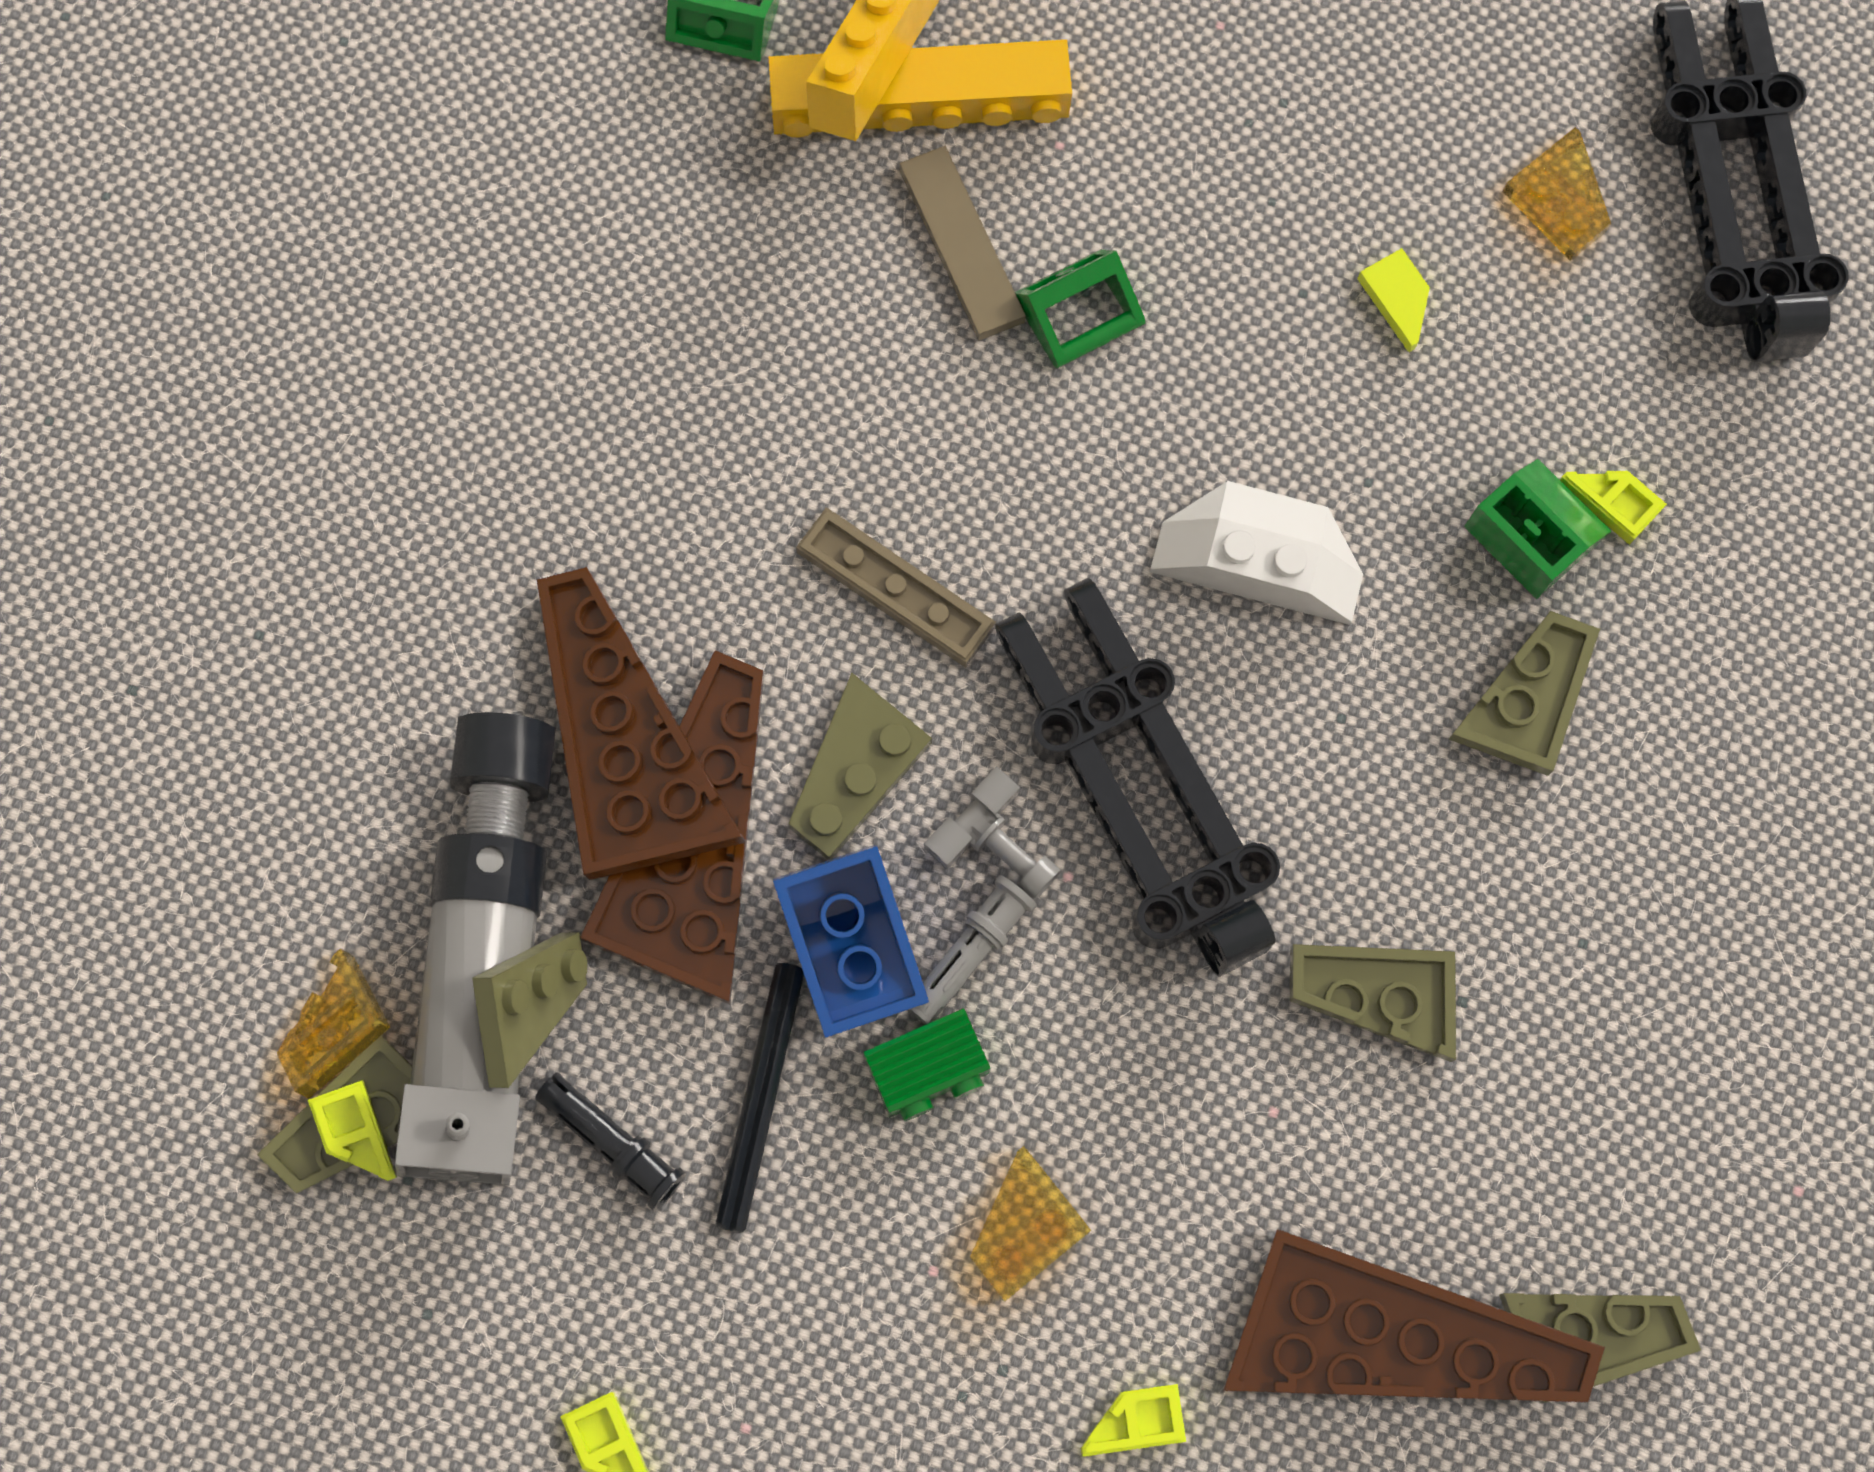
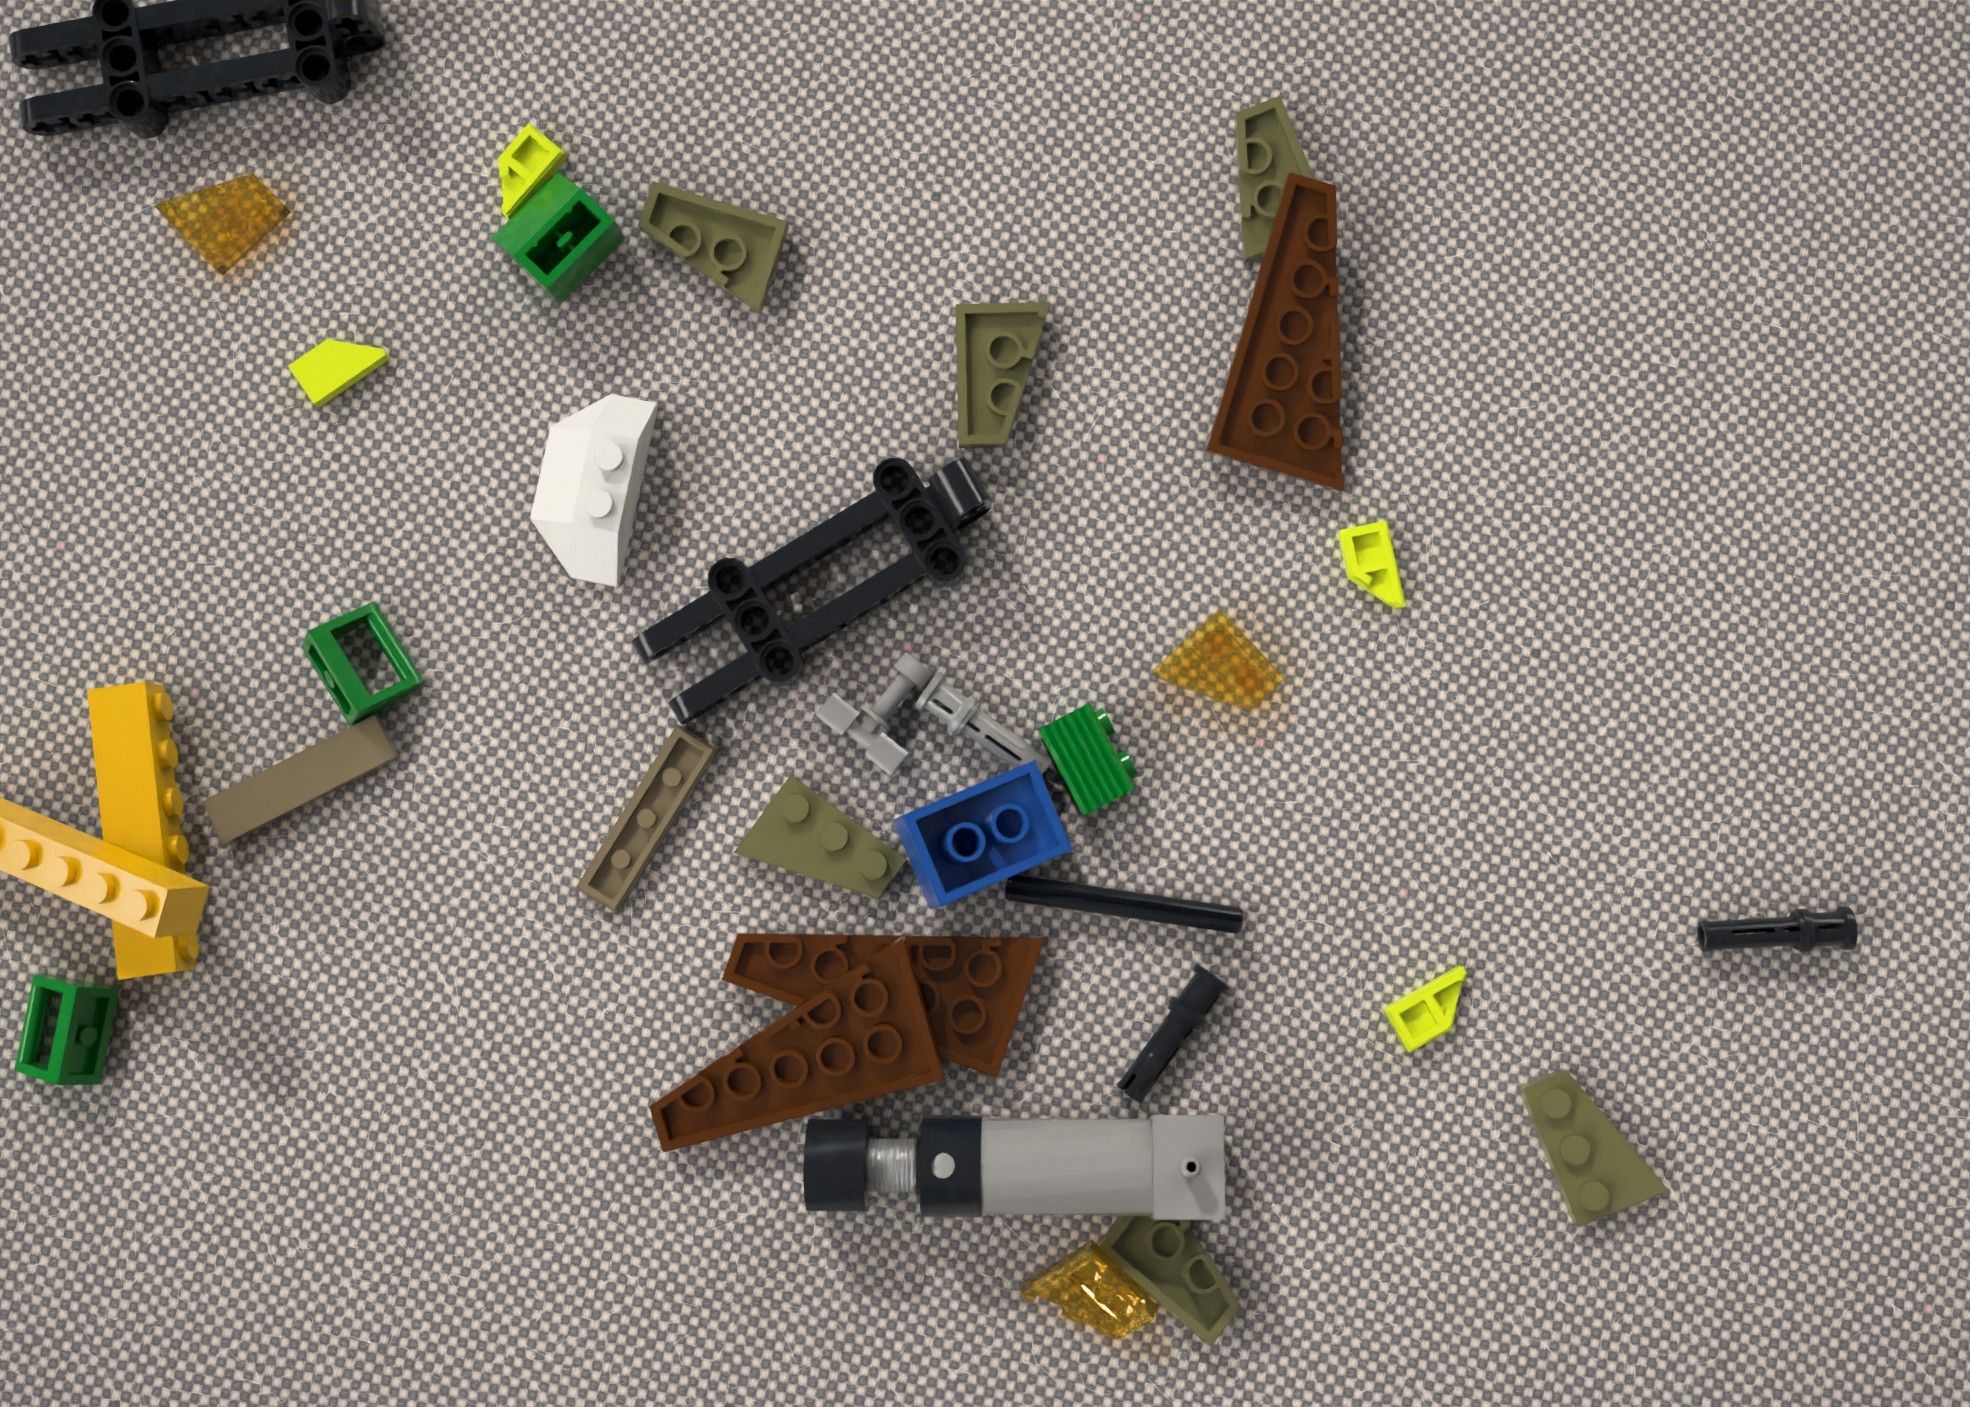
camera: 85 degrees left, 10 degrees up
(352, 1130) = (1183, 1263): neon yellow tile -> none
(525, 1001) = (1065, 1120): olive wing -> none

